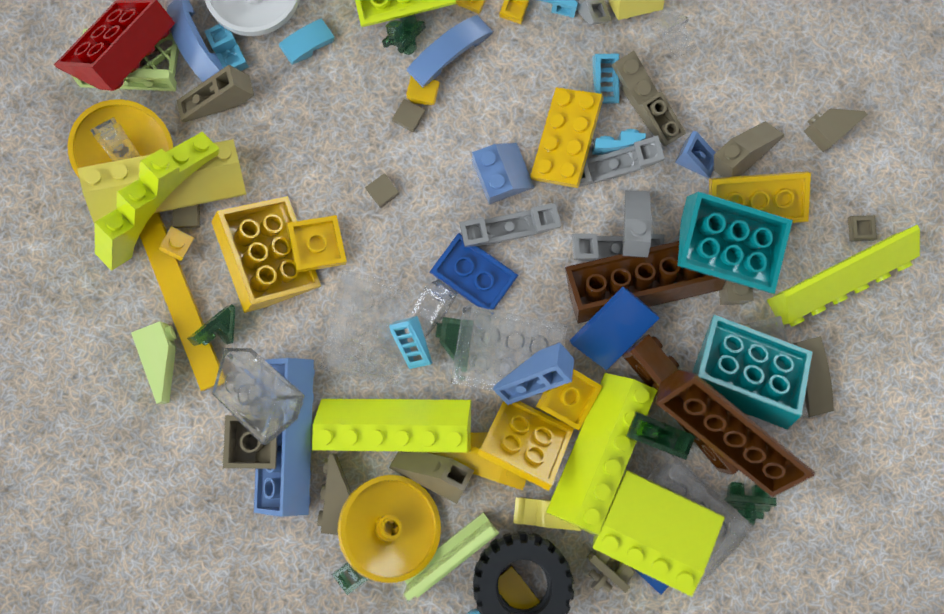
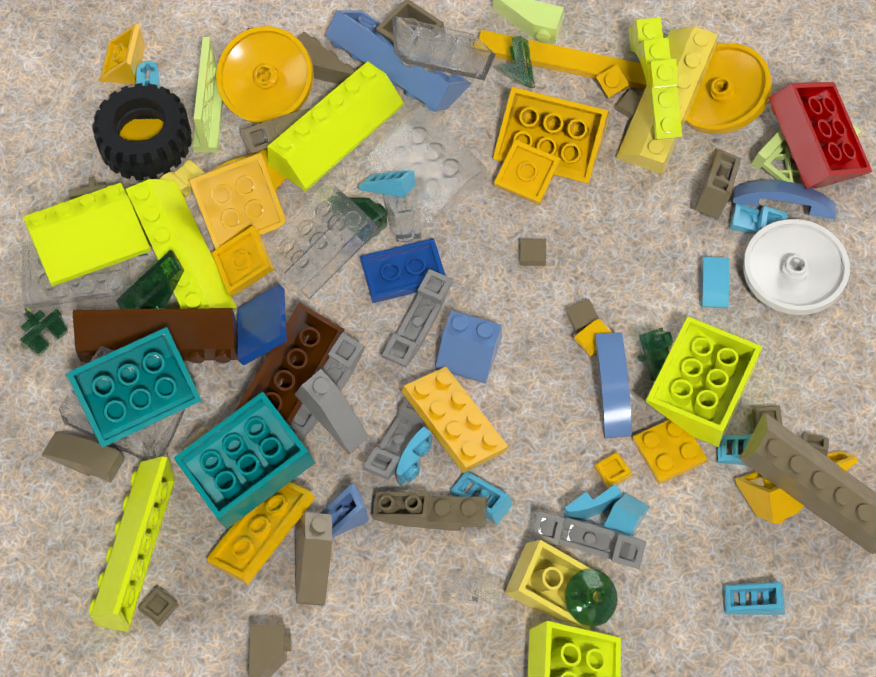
camera: 135 degrees right, 20 degrees down
(114, 140) = (724, 78): clear slope -> none
(539, 373) = (278, 241): medium blue slope -> none
(731, 433) = (104, 325): reddish brown slope -> none

